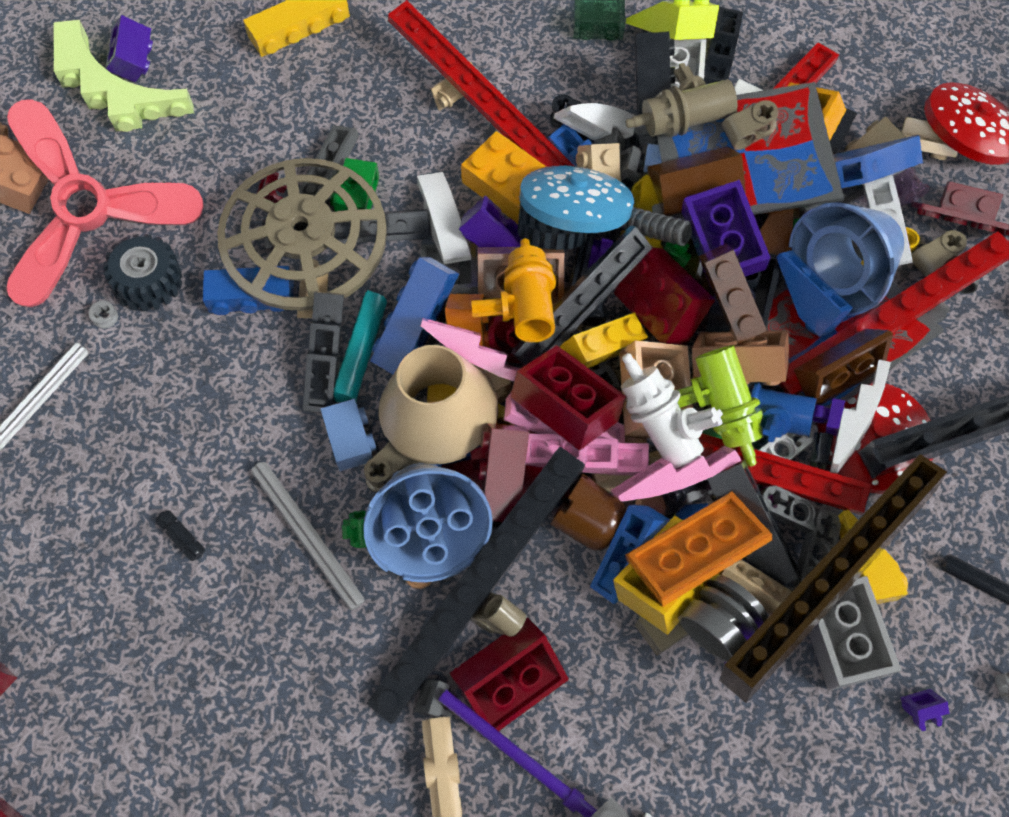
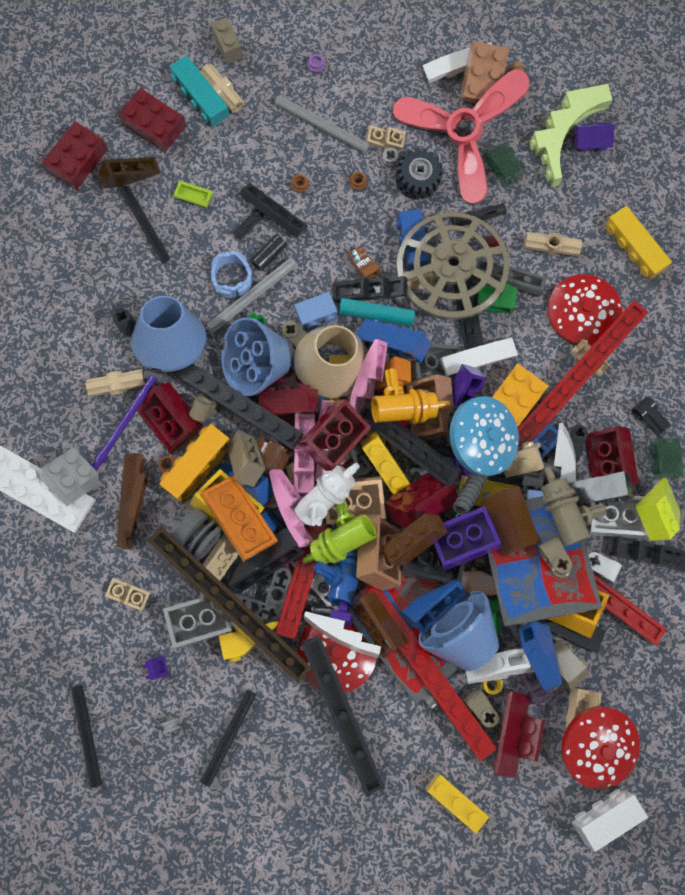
camera: 85 degrees right, 10 degrees up
(41, 744) = (127, 171): none -> dark brown slope
(70, 319) = (385, 138): none -> tan slope
(107, 626) = (193, 194): none -> lime tile
(117, 444) = (299, 178): none -> dark orange plate
(132, 356) = (358, 176): none -> dark orange plate
(148, 715) = (145, 224): none -> black axle
(151, 160) = (505, 165): none -> clear green brick
(160, 493) = (273, 210): none -> black plate
(222, 194) = (498, 210): none -> black pin
(237, 503) = (268, 252): none -> black axle
(244, 546) = (231, 257): none -> light blue piece
(277, 362) = (363, 264): none -> dark orange leg
(283, 114) = (564, 245): none -> tan piece
(325, 741) = (124, 321): none -> black axle
(384, 90) = (583, 308): none -> red dish
(396, 682) = (171, 346): none -> medium blue cone
(536, 33) = (647, 411): none -> black piece
(596, 627) = (195, 464): none -> light orange brick
(596, 674) = (163, 461): none -> dark orange plate
(598, 76) = (611, 453): none -> dark red slope
(598, 538) = (245, 459): none -> dark tan brick
(645, 747) = (132, 496): none -> reddish brown wedge
(806, 757) = (127, 594): none -> tan slope

